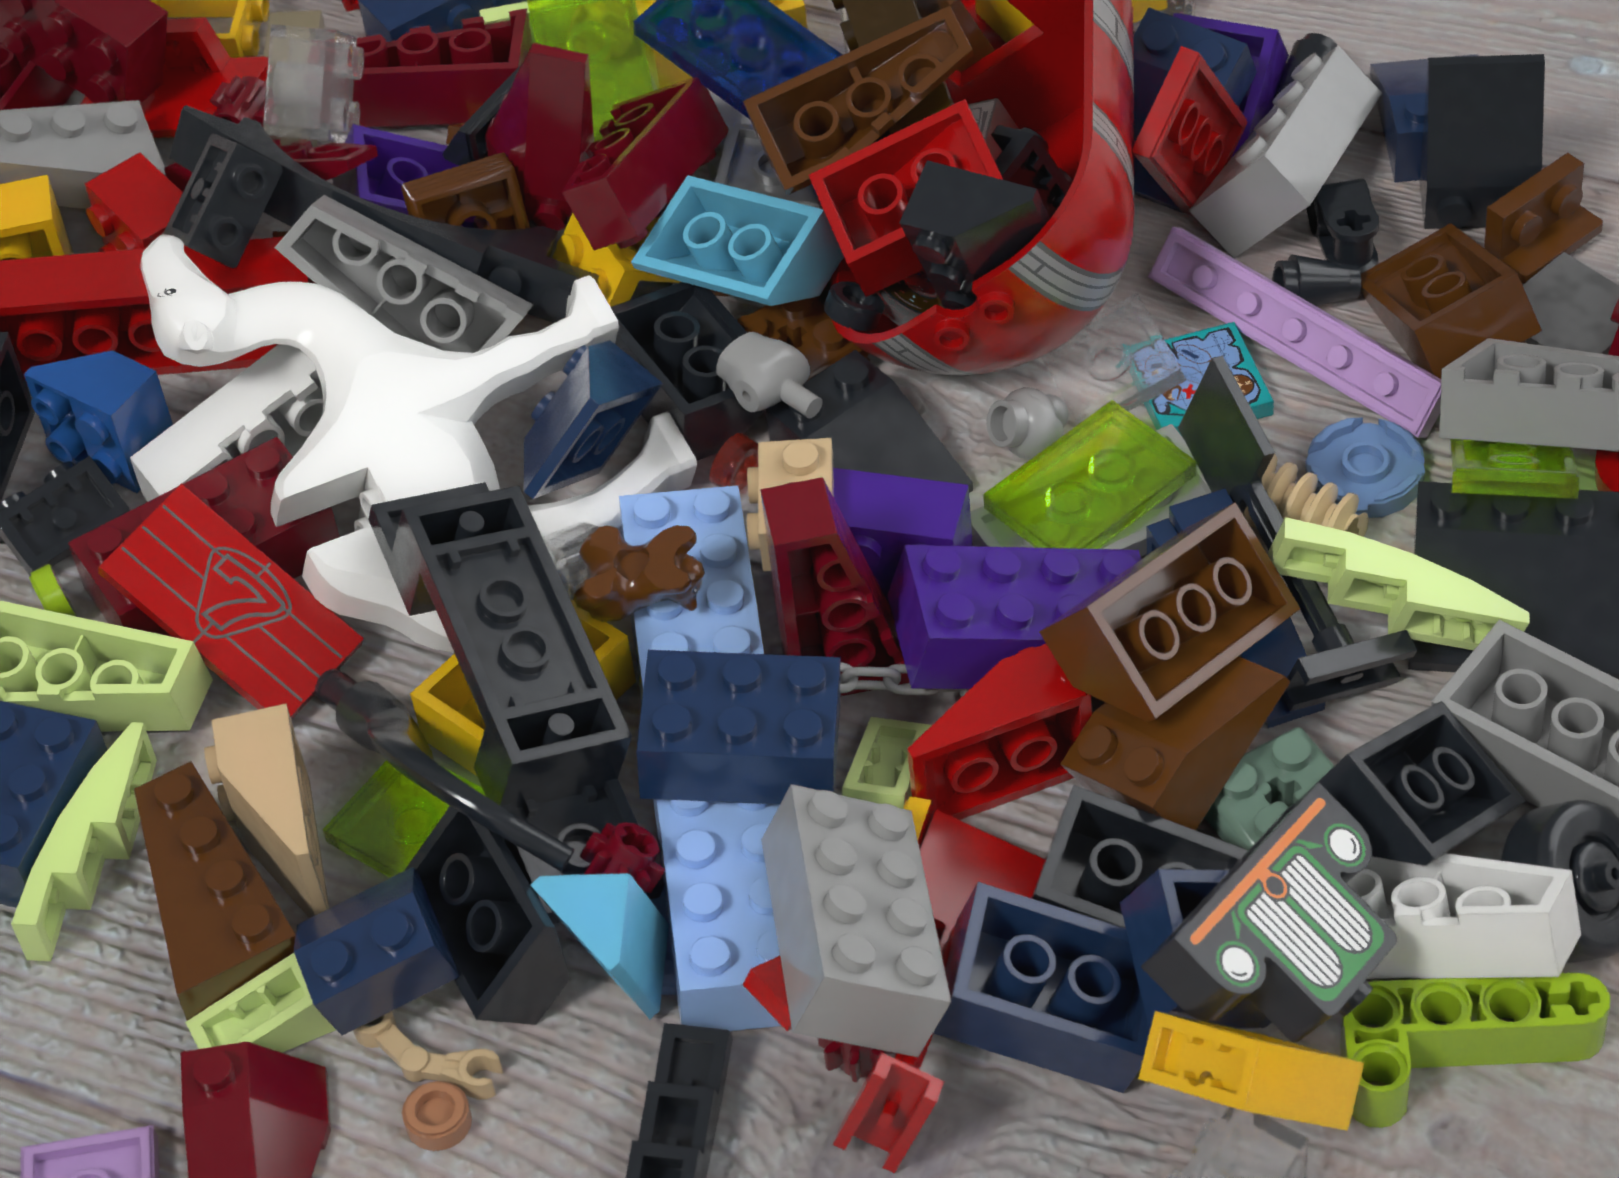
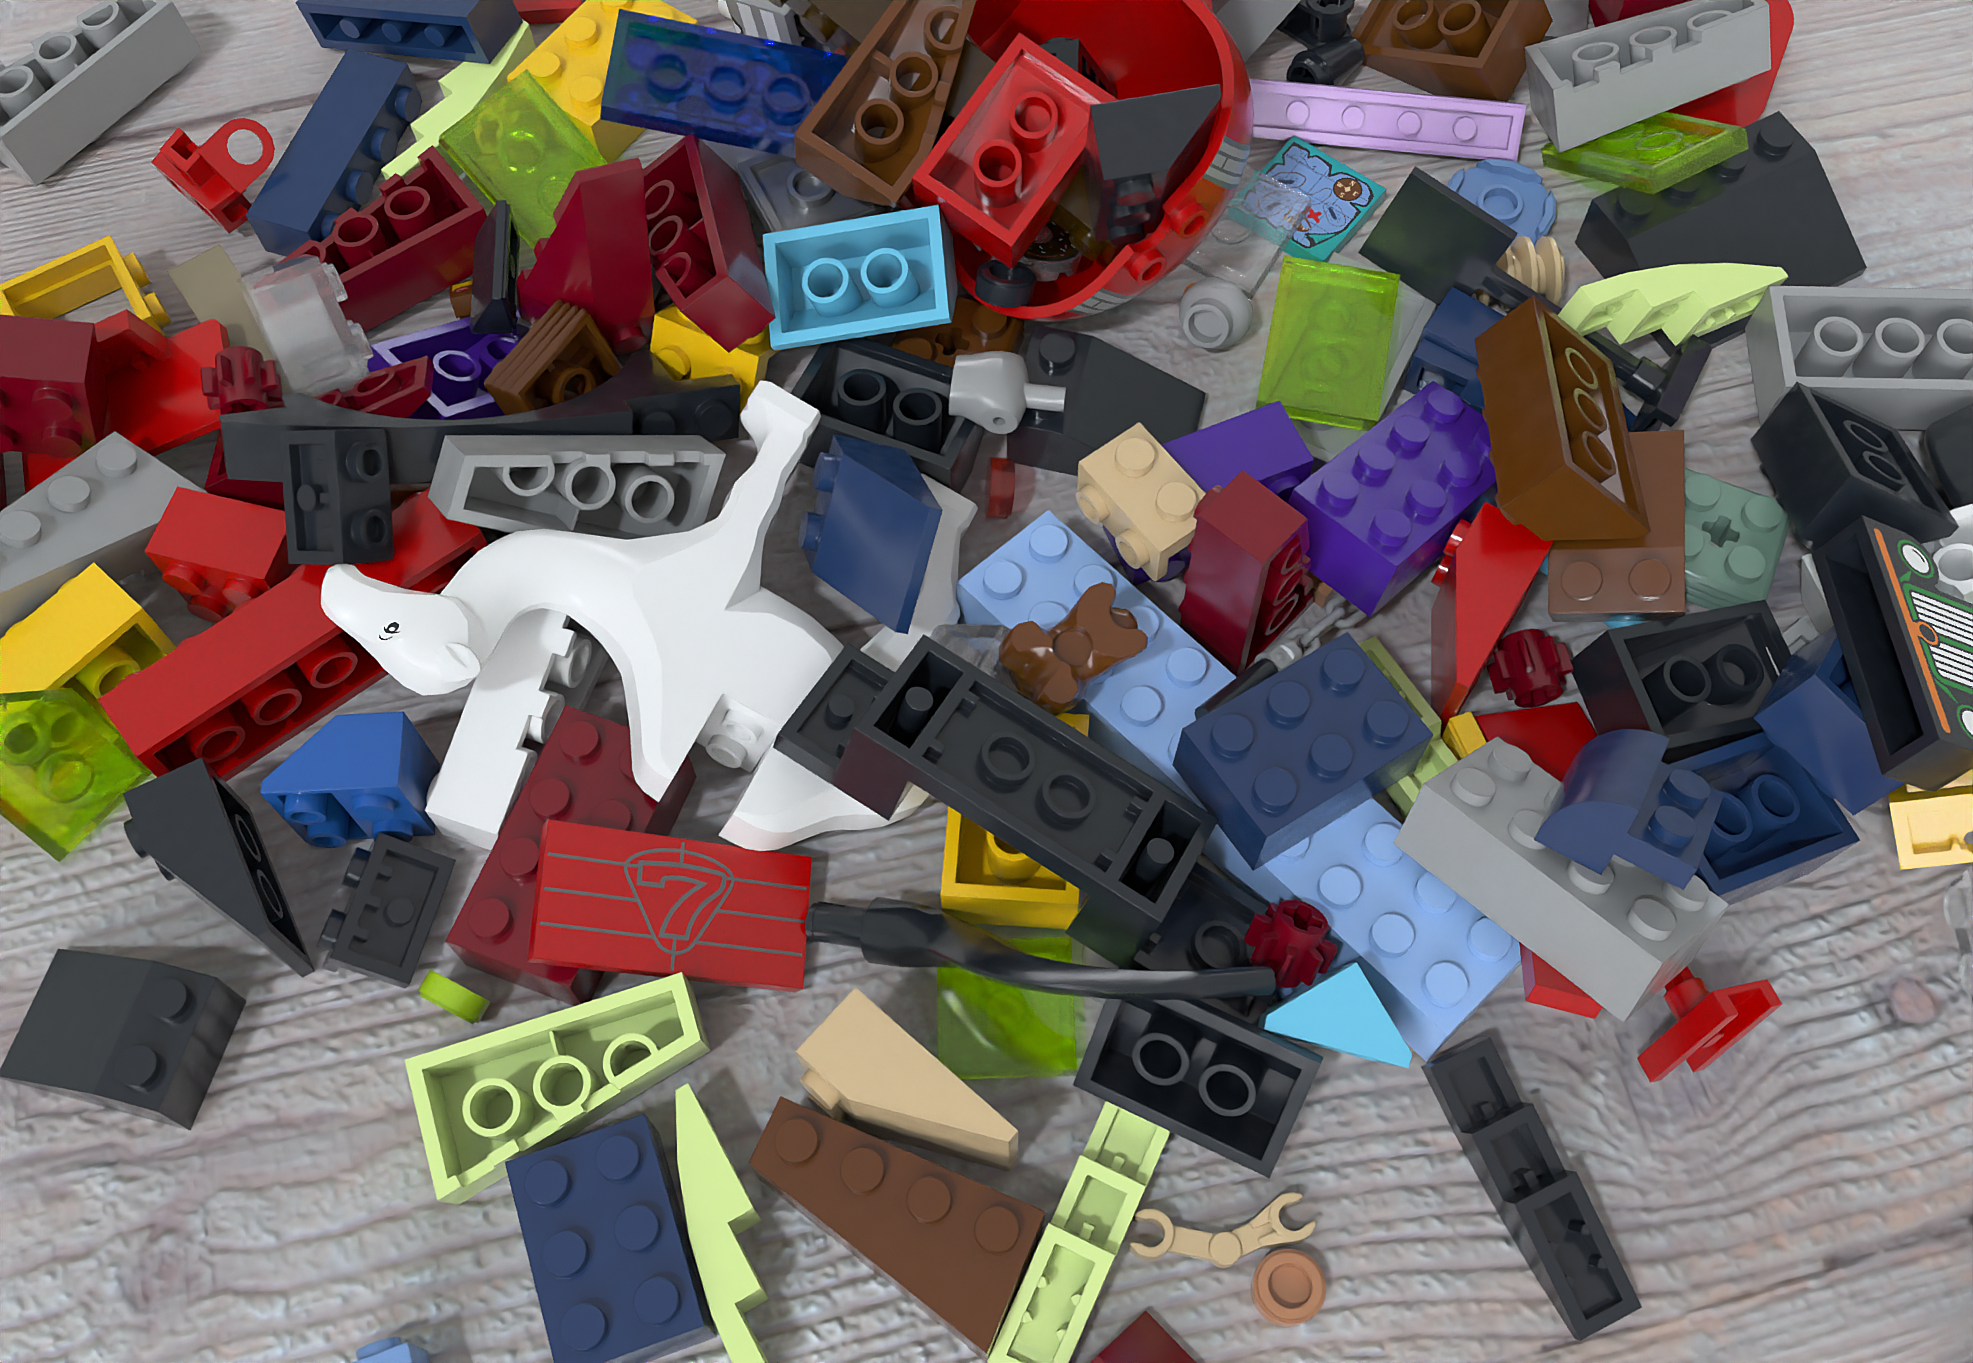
camera: 40 degrees left, 15 degrees up
(373, 952) = (1125, 1174): dark blue slope -> none
(919, 879) = (1631, 806): none -> dark blue brick
(1024, 807) = (1530, 668): none -> dark red gear

